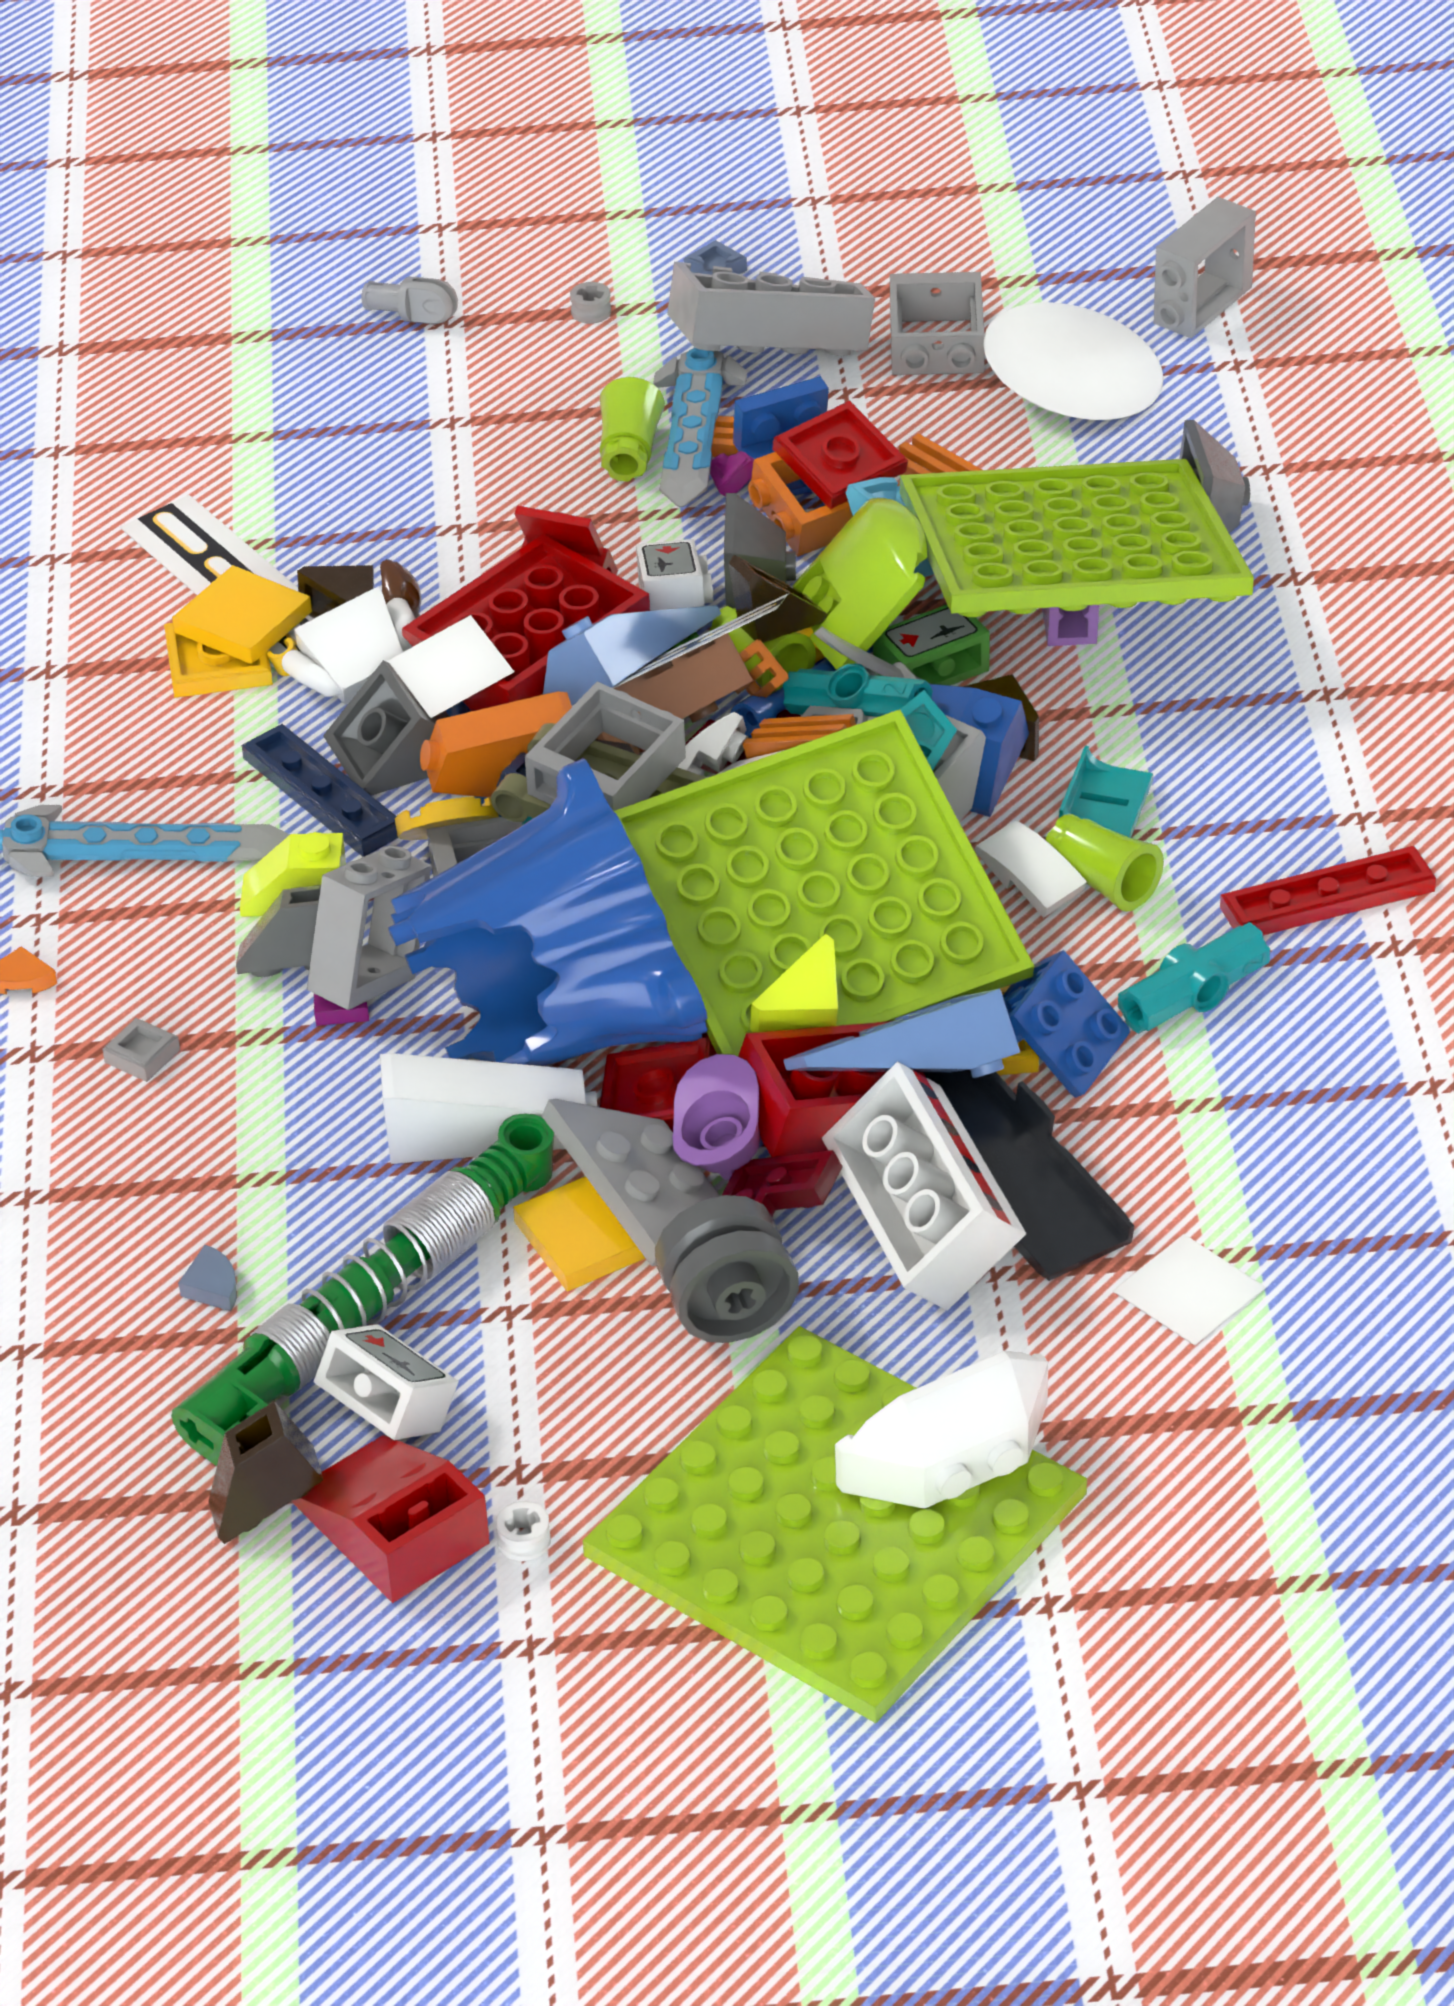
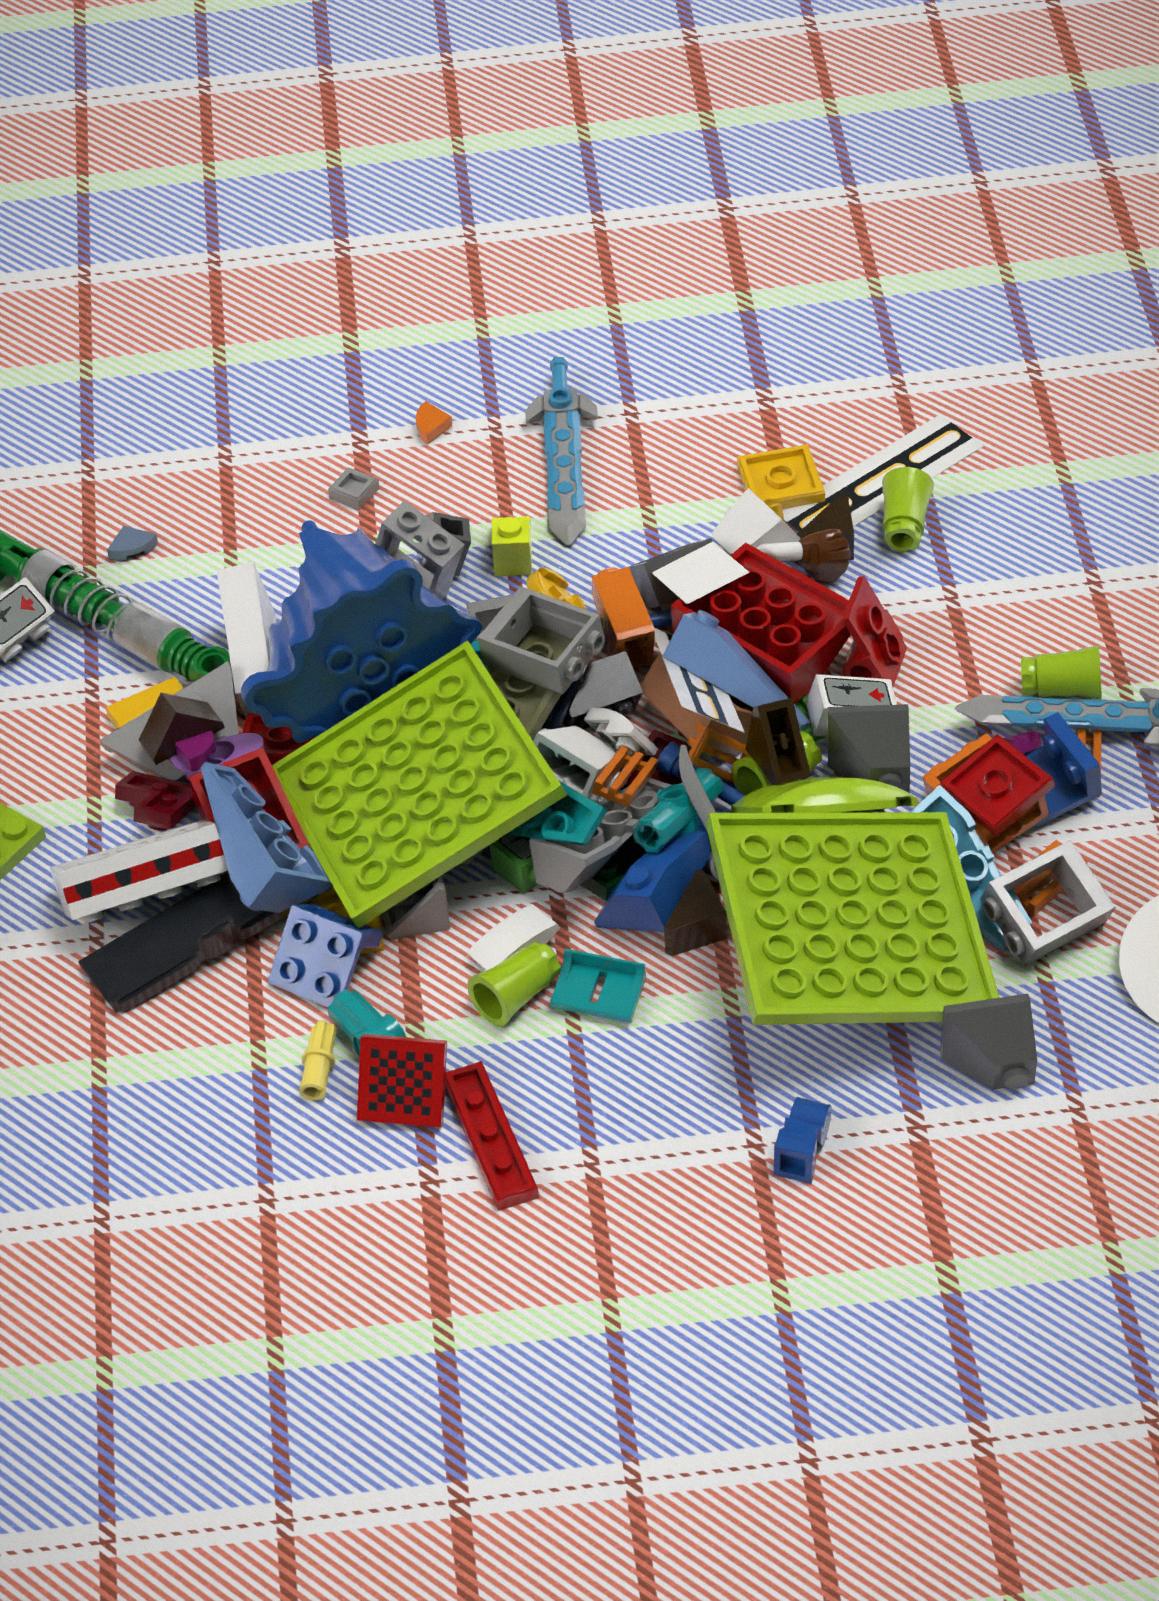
camera: 90 degrees right, 5 degrees up
(242, 614) = (808, 477): yellow tile -> none
(318, 538) = (905, 506): none -> lime plant
(321, 789) = (626, 545): dark blue tile -> none
(676, 1148) = (175, 720): none -> dark brown slope
(720, 1122) = (196, 749): none -> magenta tile
(726, 1269) = (71, 771): dark grey wheel -> none
(802, 995) = (310, 783): neon yellow slope -> none
(973, 431) = (1078, 884): none -> light grey window
(1189, 1289) = (66, 1047): white sticker -> none
(1220, 1035) = (318, 1061): none -> light yellow axle
(1276, 938) = (401, 1080): none -> red tile
(1314, 635) = (799, 1140): none -> blue leg

